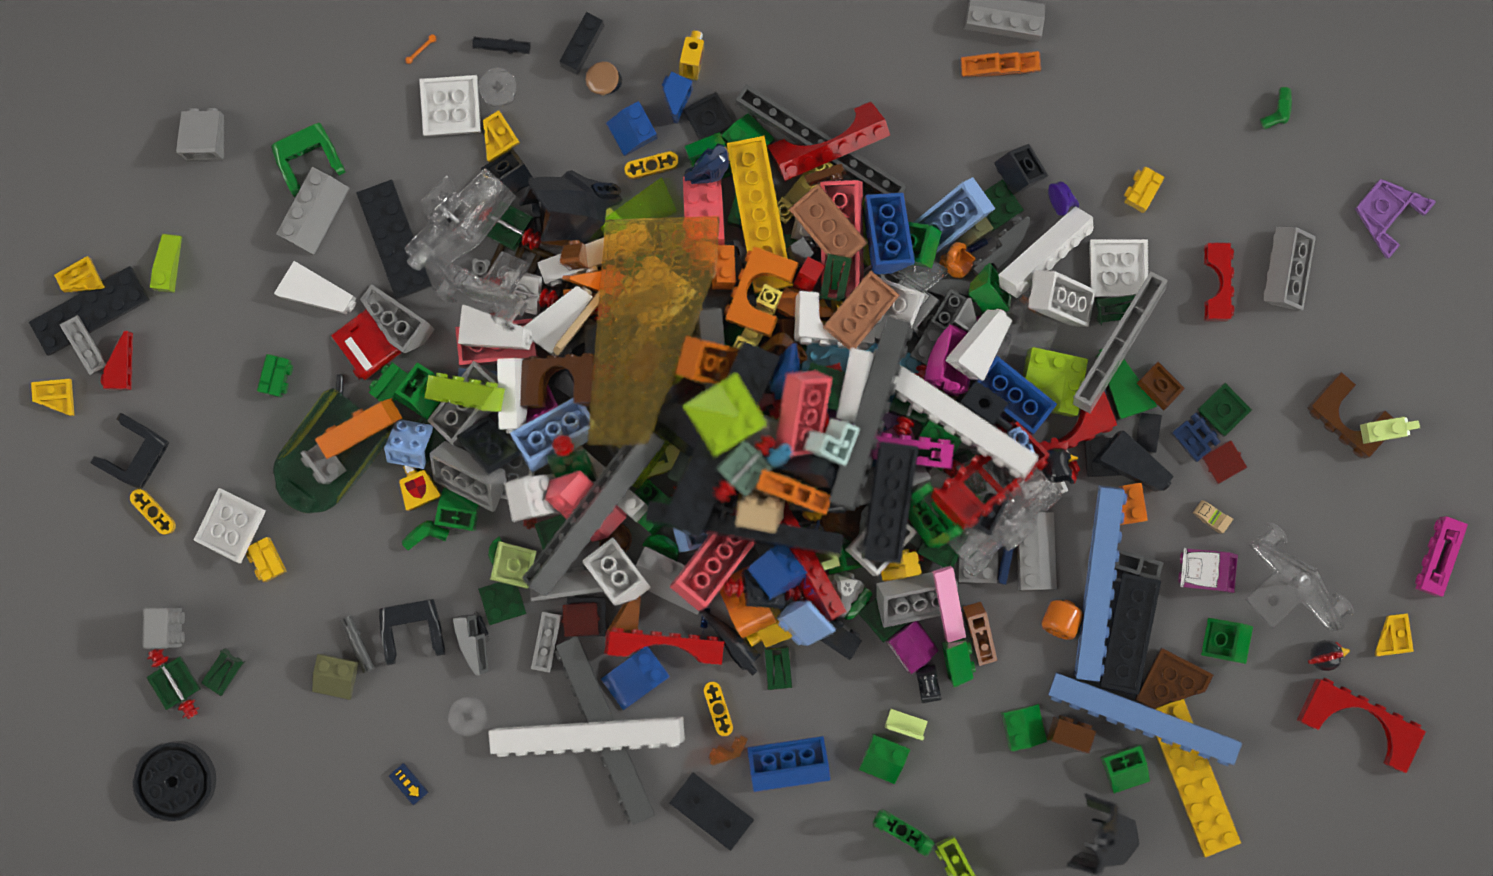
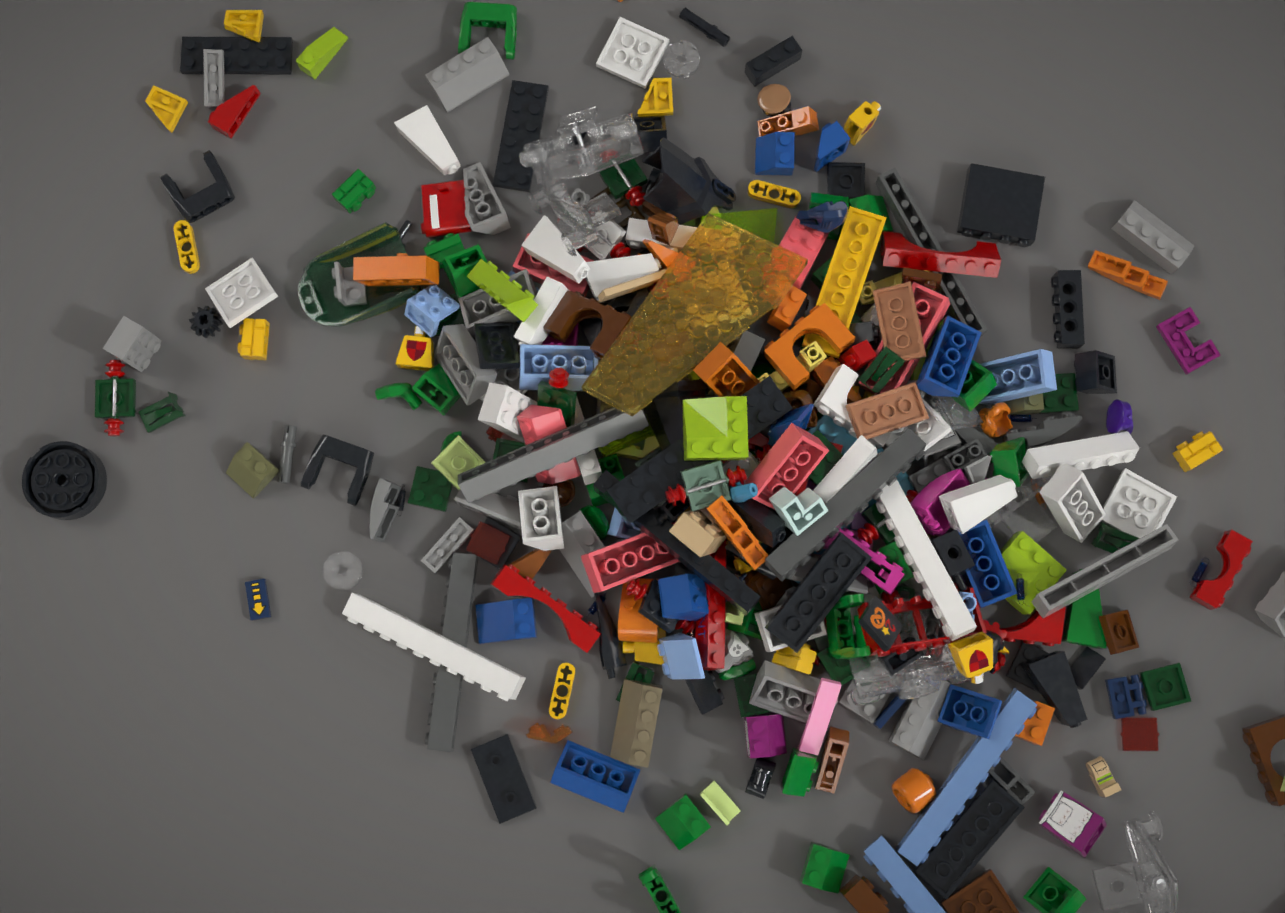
camera: 40 degrees right, 5 degrees down
(213, 561) = (206, 314): none -> black gear
(628, 93) = (798, 121): none -> orange slope
(797, 698) = (636, 722): none -> dark tan slope
(857, 63) = (1001, 205): none -> black brick
(956, 97) = (1072, 281): none -> black brick
(956, 500) = (880, 624): none -> black tile
(1049, 480) = (973, 656): none -> yellow torso
(1057, 397) = (1020, 589): none -> piece
(1072, 527) = (969, 711): none -> blue slope
(1090, 108) = (1174, 335): none -> magenta plate
(1201, 293) = (1199, 571): none -> clear blue piece

